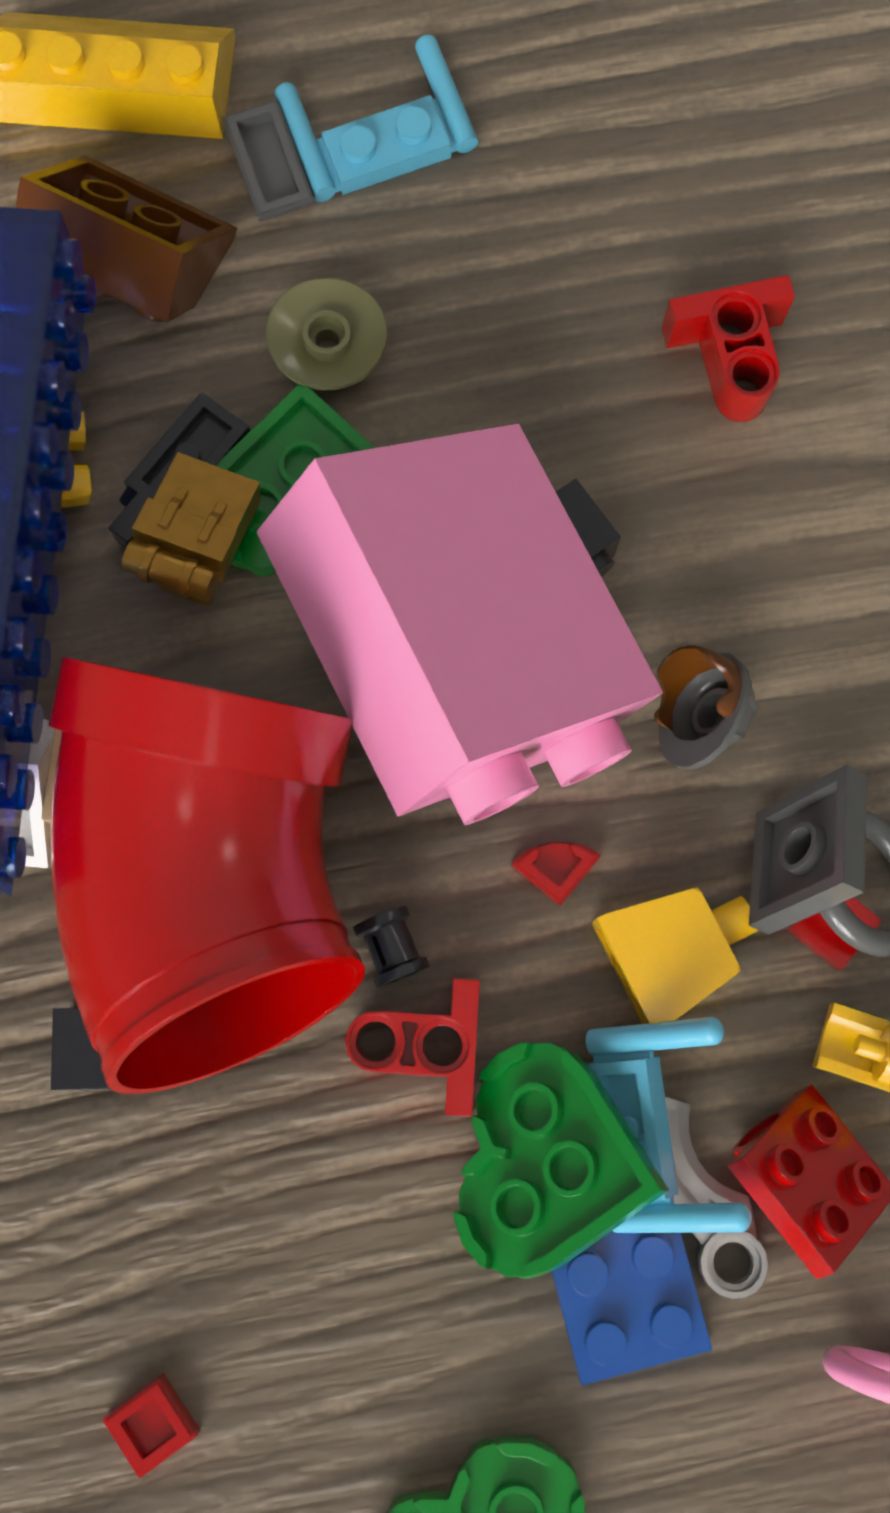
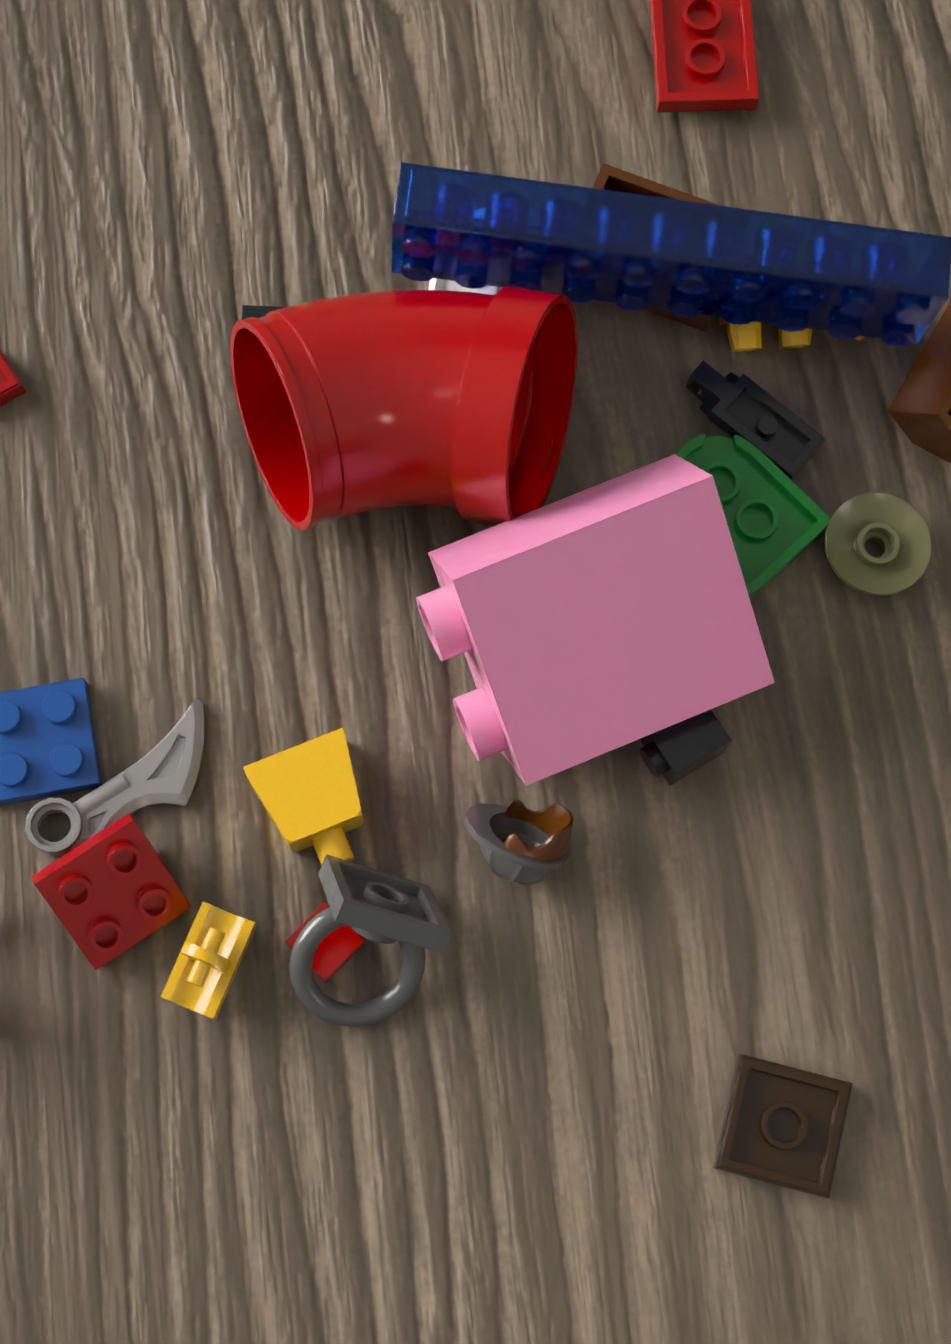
camera: 90 degrees right, 5 degrees down
(191, 528) = (693, 418): pearl gold piece -> none
(391, 946) = (336, 570): black bush -> none
(409, 1052) = (252, 580): red tile -> none
(550, 1164) = (148, 677): green plate -> none
(556, 867) = (392, 712): red tile -> none
(635, 1084) = (165, 748): medium azure plate -> none
(726, 356) = (854, 910): red tile -> none

